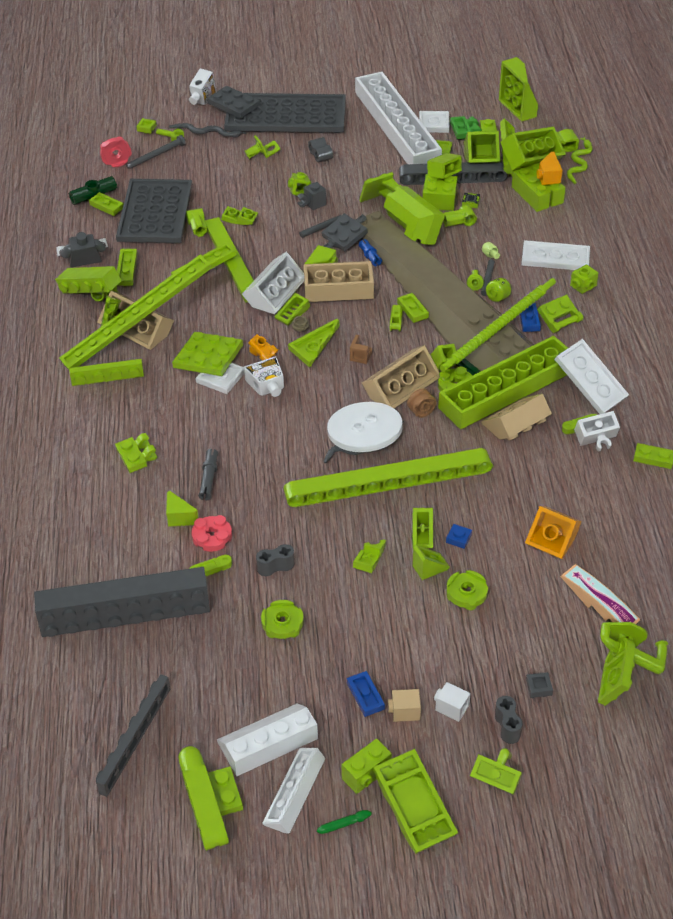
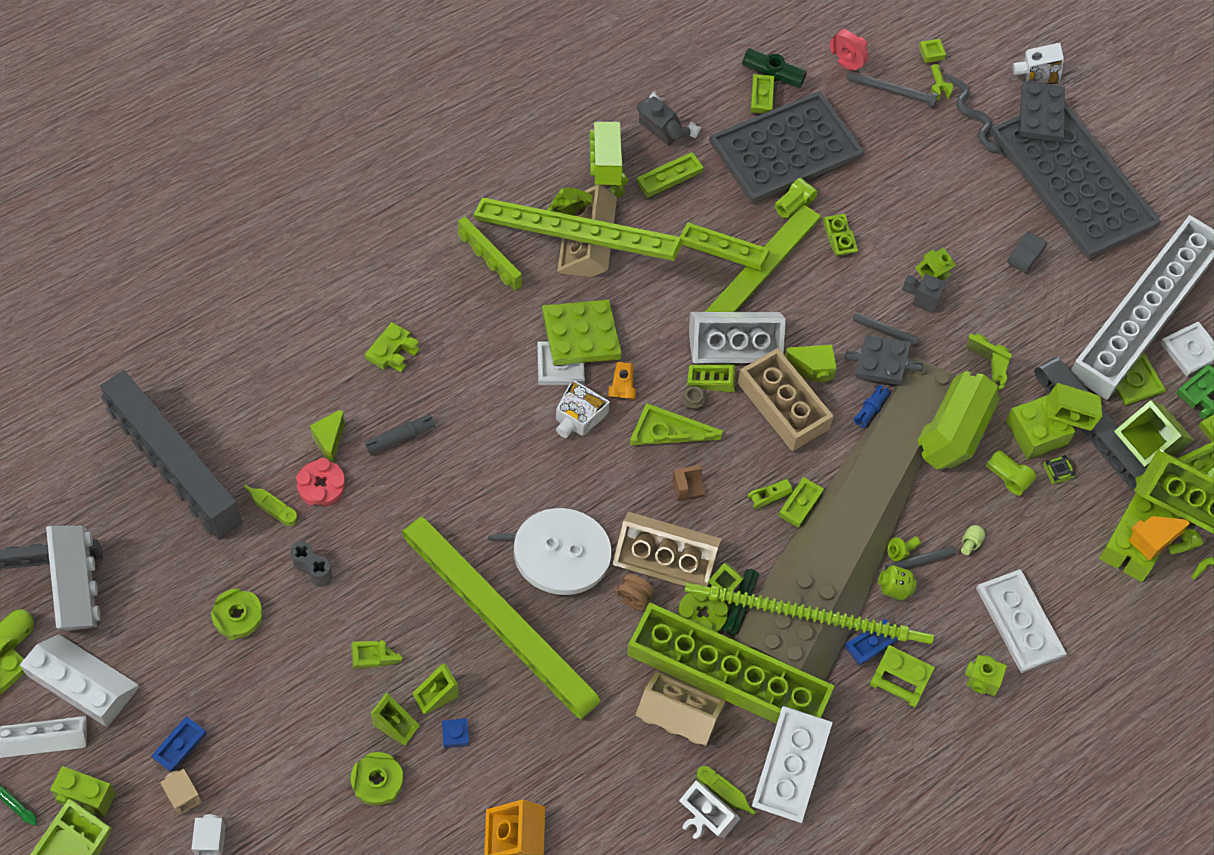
camera: 55 degrees right, 15 degrees up
(184, 699) = (72, 577): none -> white slope
(258, 147) = (980, 190): lime bracket -> none

